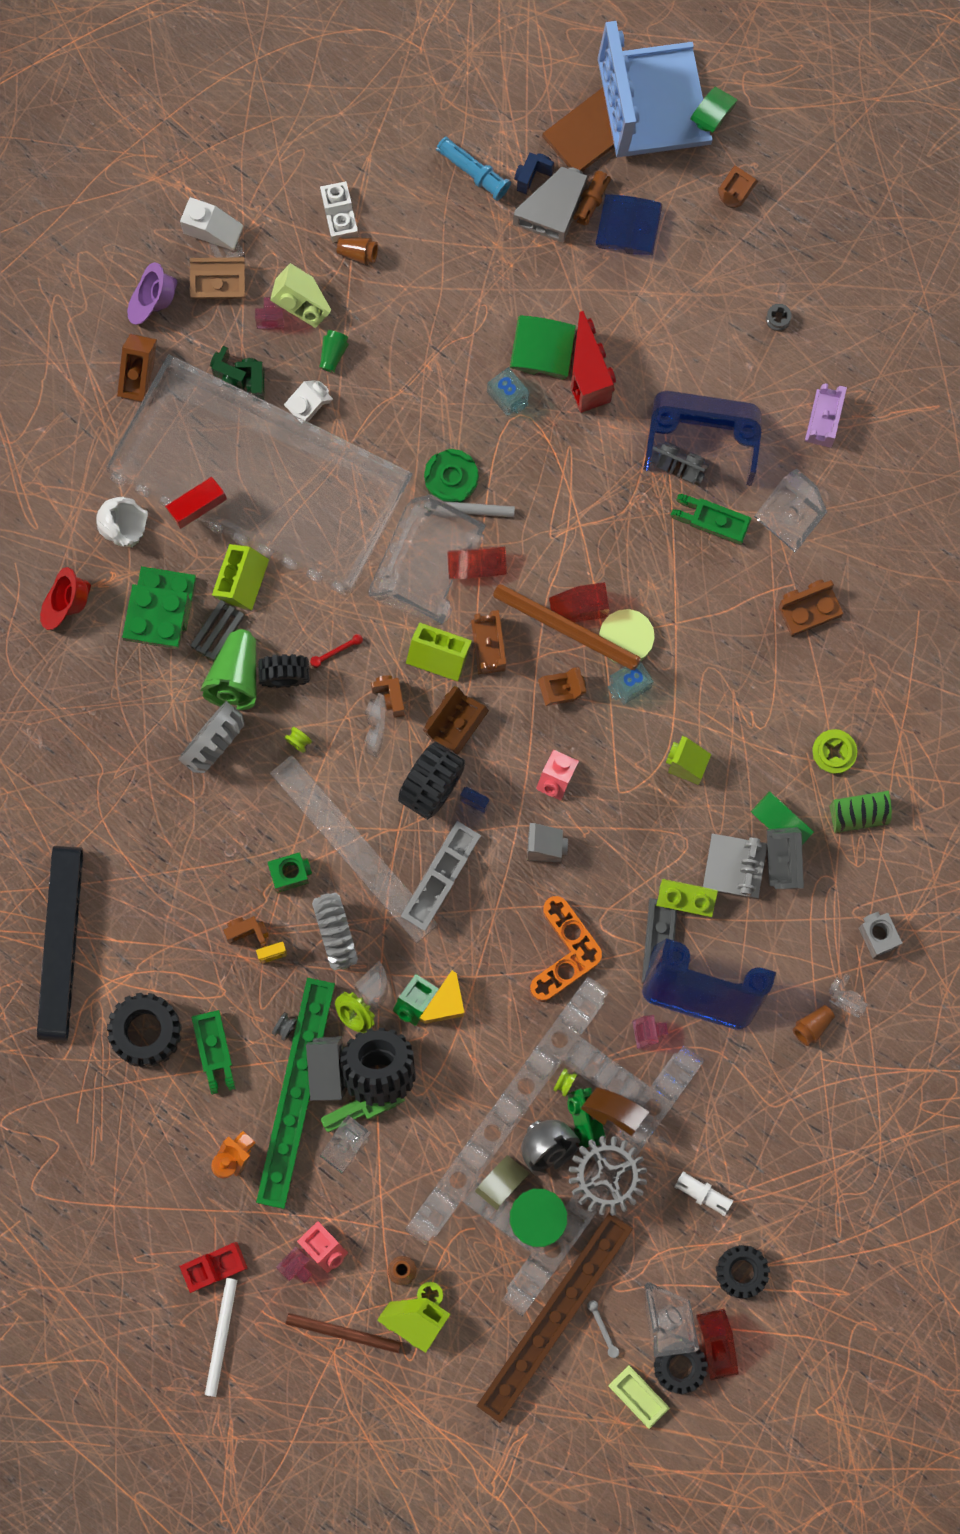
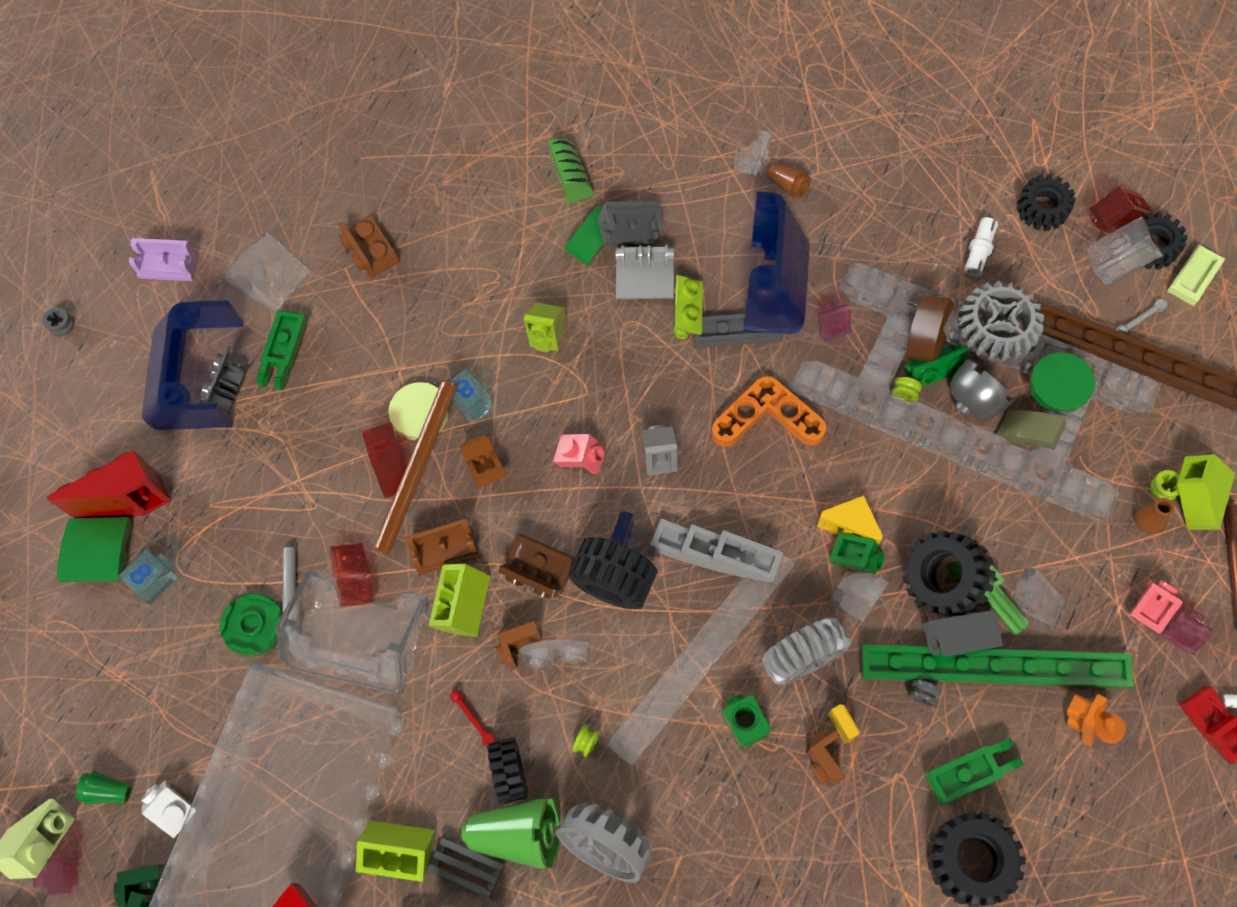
camera: 90 degrees left, 10 degrees down
(347, 1006) = (890, 615): lime gear -> none
(847, 751) = (512, 193): lime gear -> none
(876, 946) = (688, 136): light grey brick -> none

